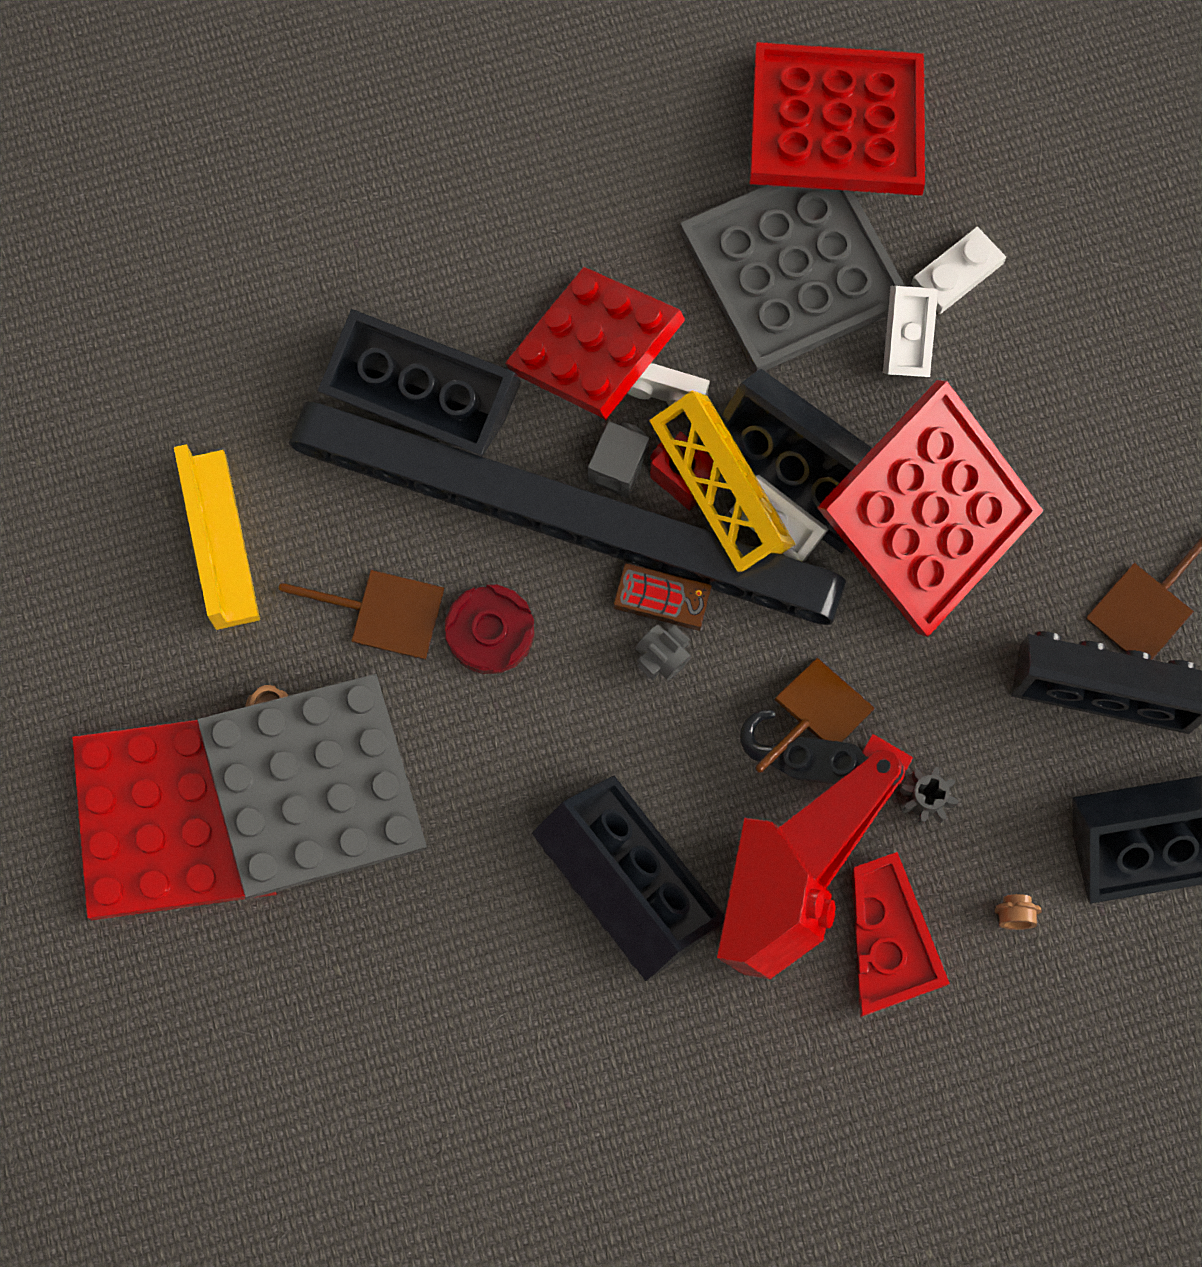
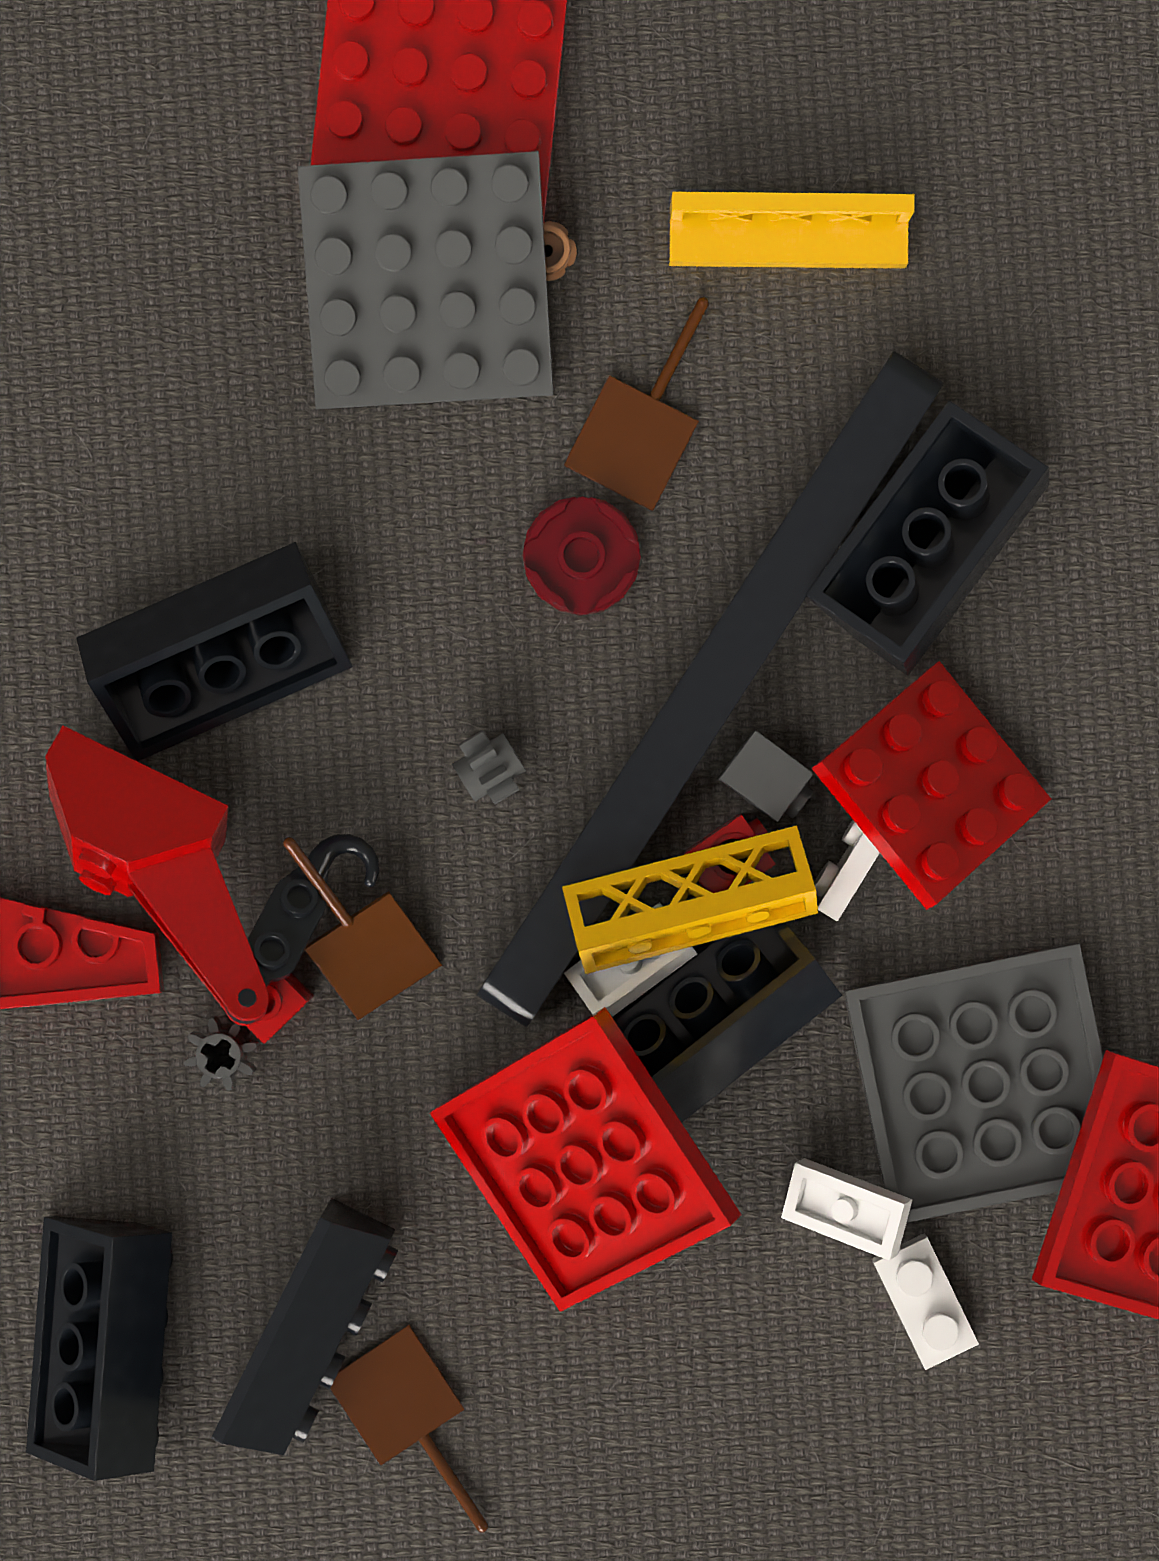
camera: 100 degrees right, 15 degrees up
(662, 597) = (568, 787): tile -> none
(1017, 912) = (52, 1122): medium nougat plate -> none

